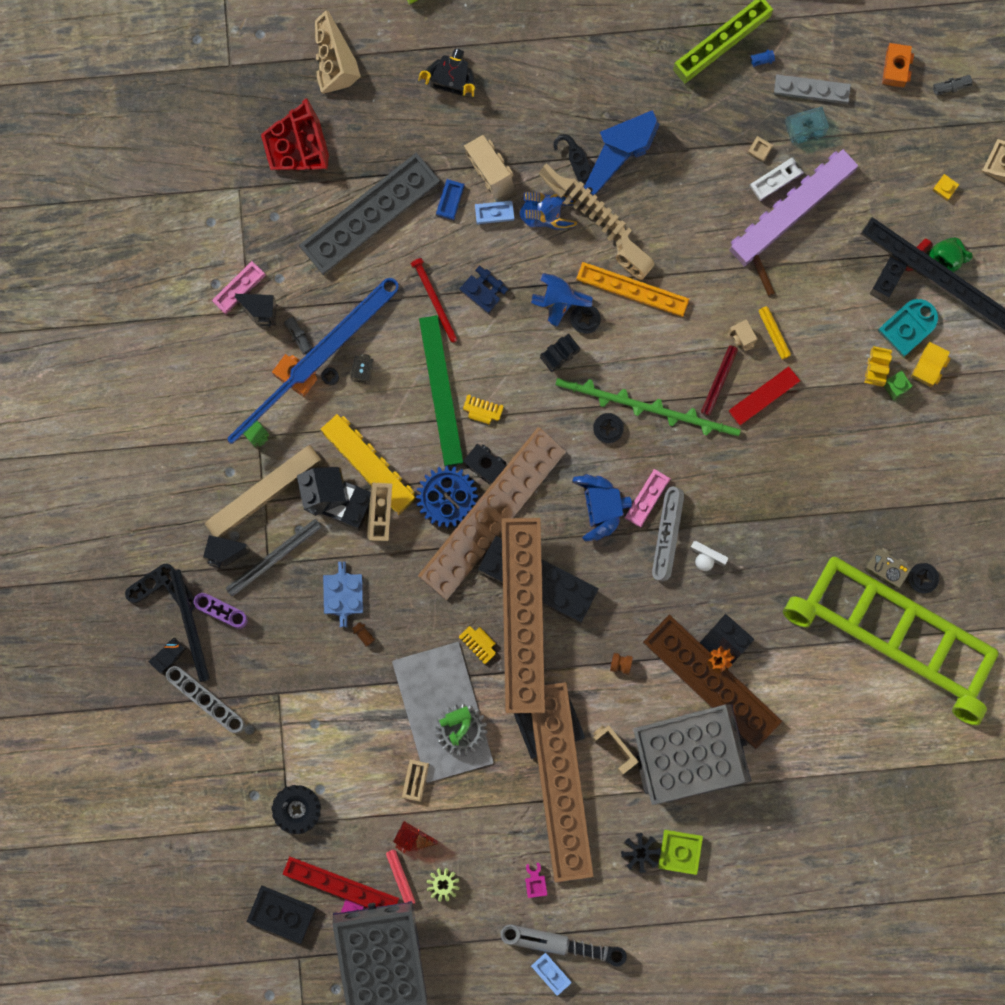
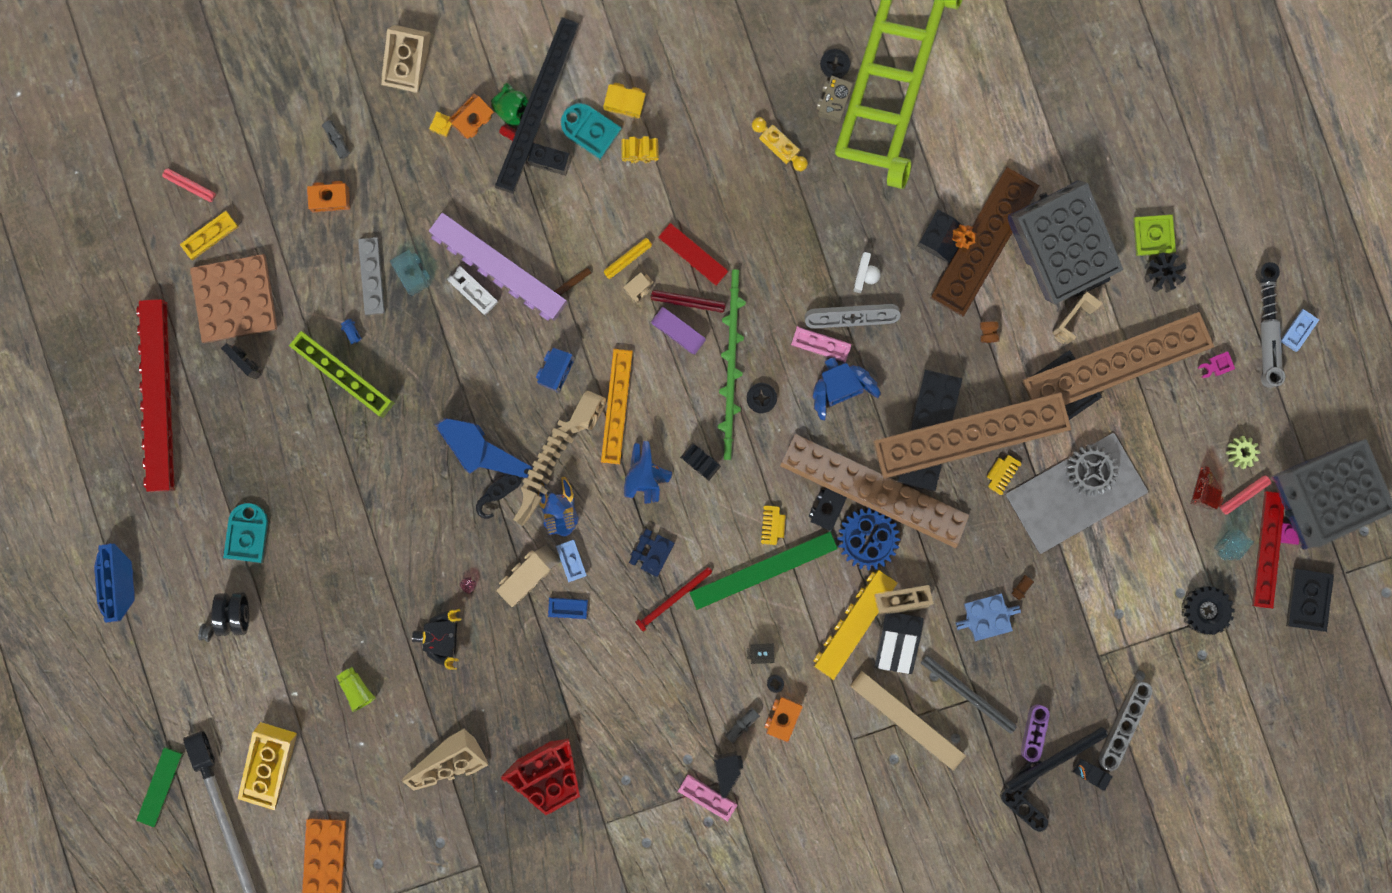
camera: 95 degrees left, 5 degrees up
(223, 551) = (977, 745): black slope -> none
(256, 435) = (850, 744): bright green brick -> none
(322, 489) = (893, 662): black slope -> none
(323, 350) = (753, 695): blue piece -> none
(353, 848) = (1233, 545): none -> clear light blue brick
(369, 213) = (602, 685): dark grey plate -> none
(408, 777) = (1133, 503): tan tile -> none
(455, 717) = (1083, 473): bright green plant -> none
(495, 112) = (467, 585): none -> clear pink hinge
(582, 327) = (667, 445): black gear -> none
(680, 238) = (555, 370): none -> blue slope
(692, 363) = (678, 331): none -> medium lavender beam
(760, 149) = (444, 313): tan tile -> none
(854, 504) = (779, 144): none -> yellow plate
(897, 385) = (653, 127): bright green brick -> none
(956, 218) = (460, 121): none -> orange brick

